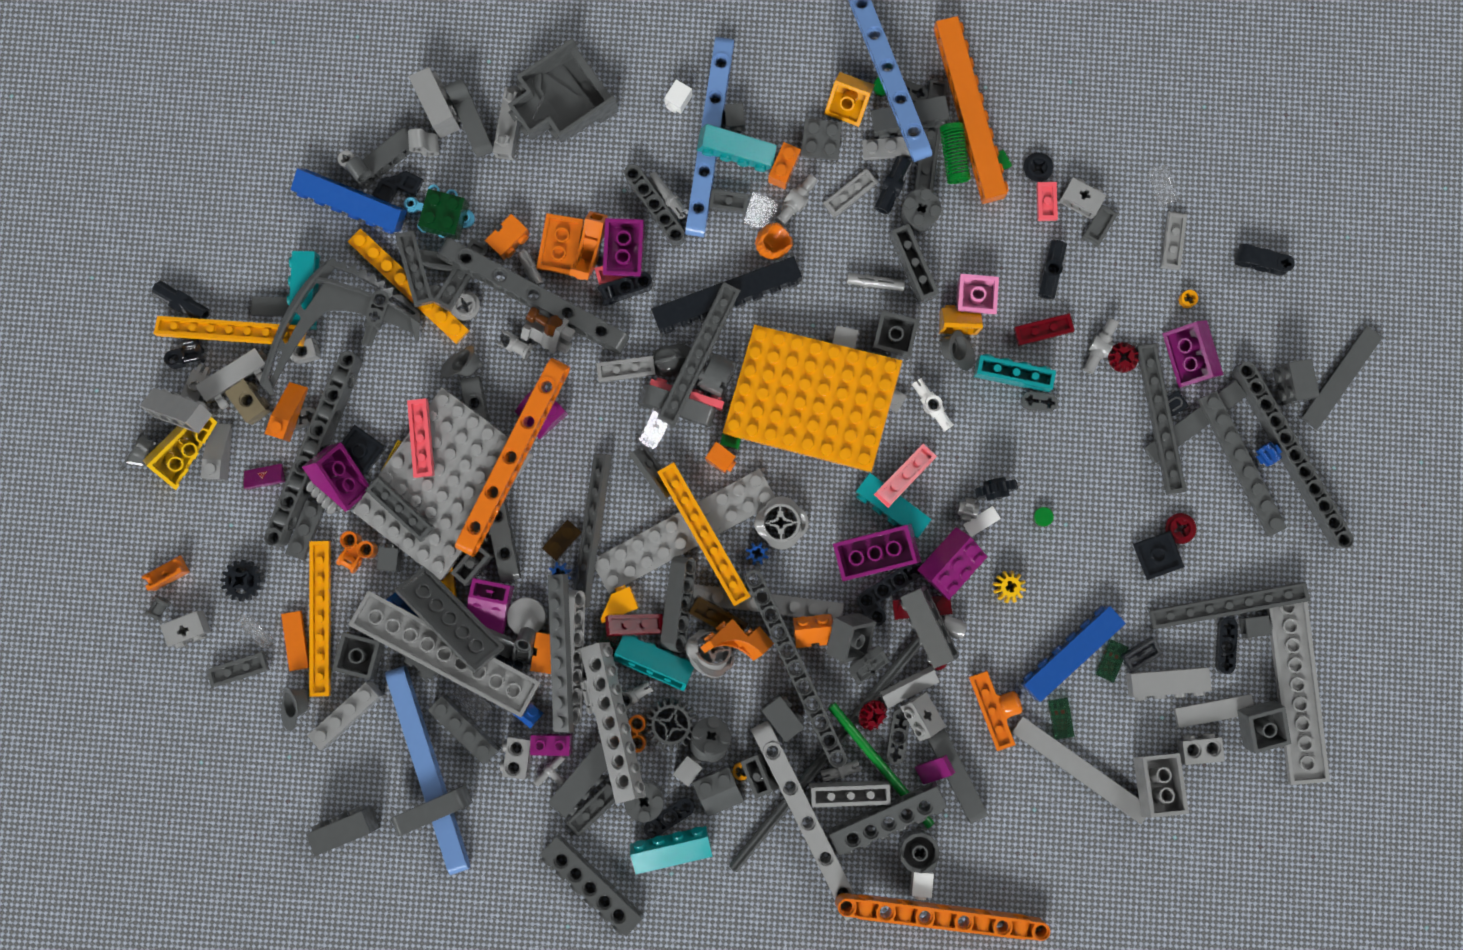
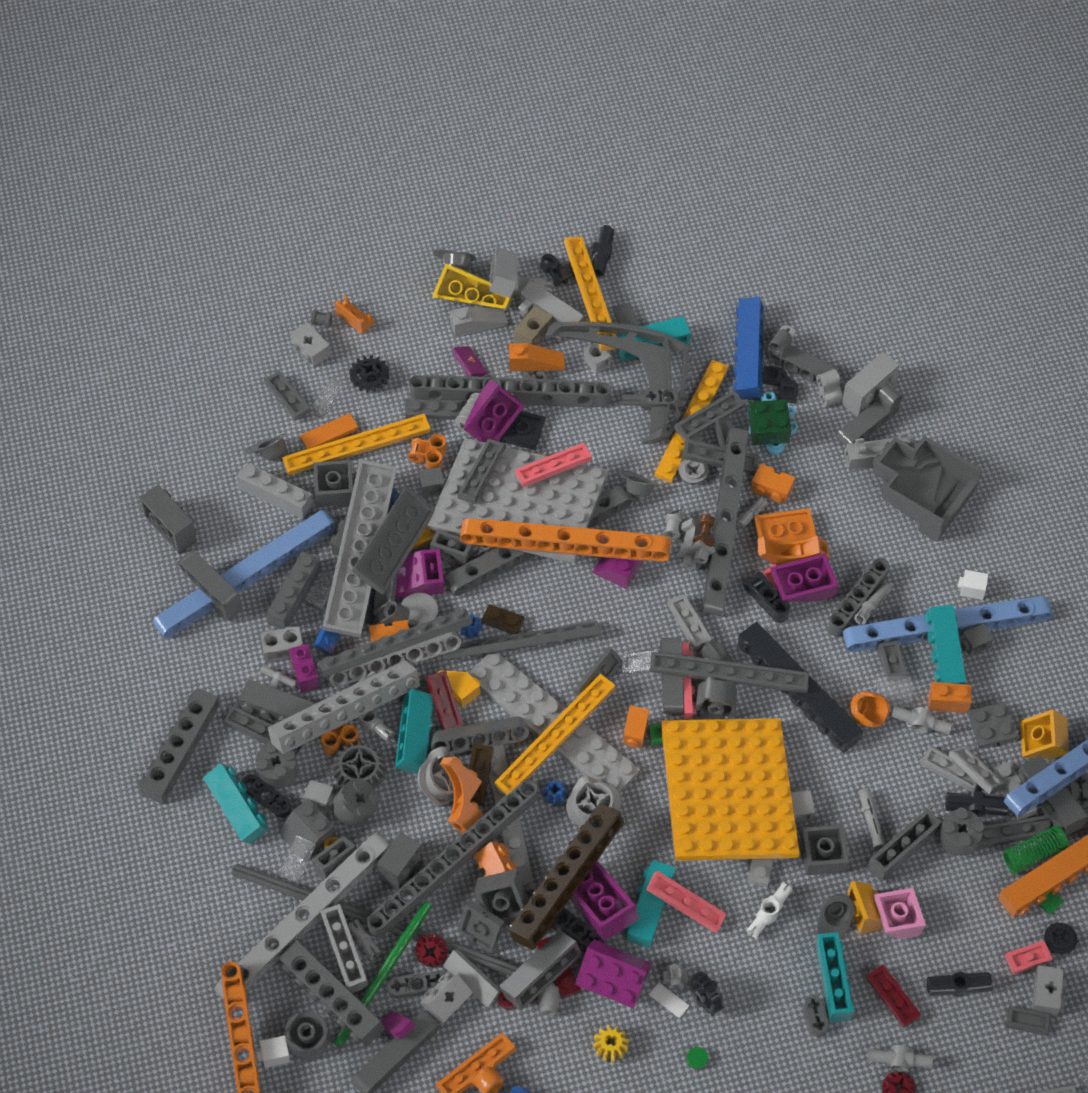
camera: 65 degrees right, 25 degrees down
(745, 809) = (297, 859): none -> clear plate
(862, 171) = (976, 770): none -> light grey tile
(902, 626) = (566, 876): none -> dark brown brick

